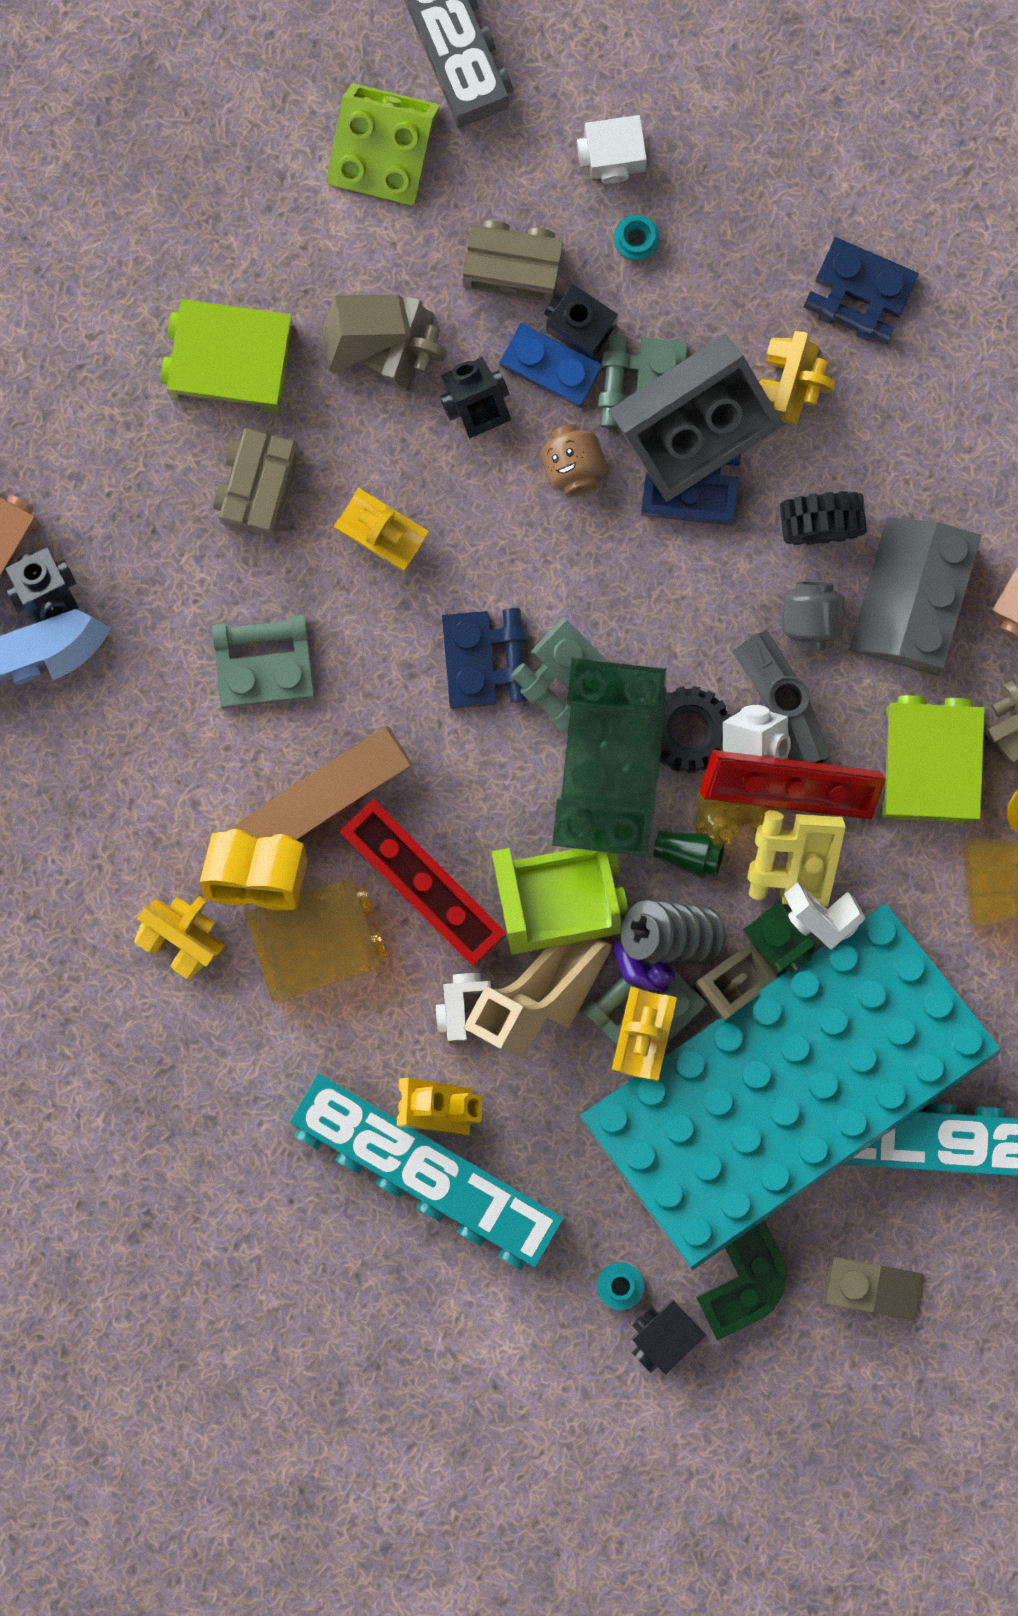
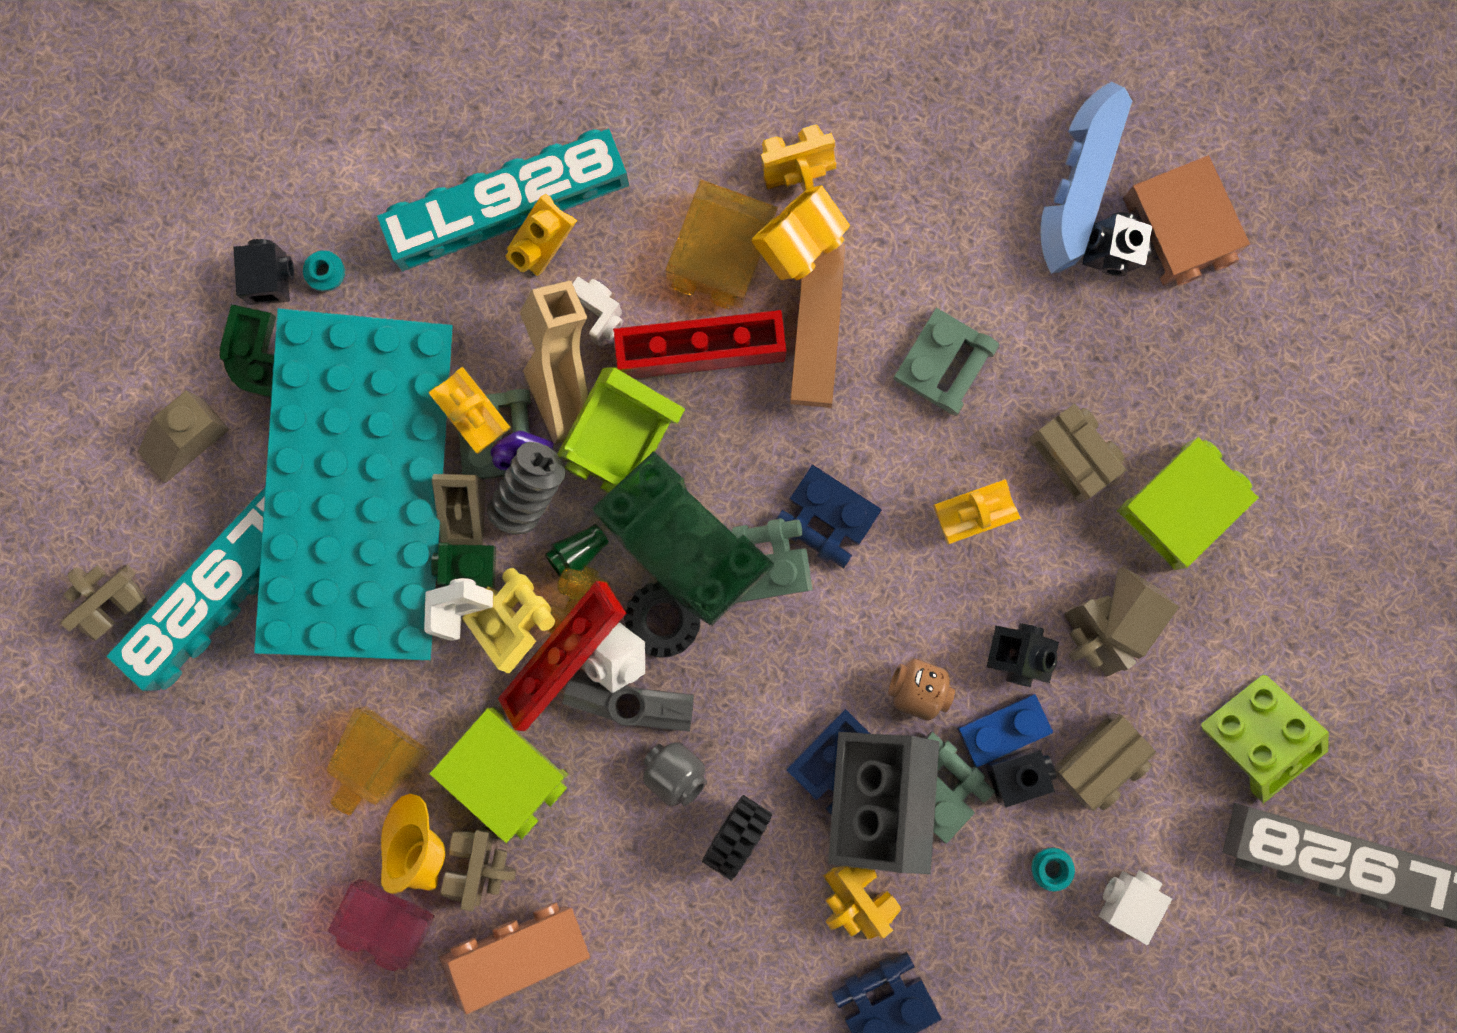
camera: 130 degrees right, 0 degrees up
(915, 593) = (630, 862): dark grey slope -> none

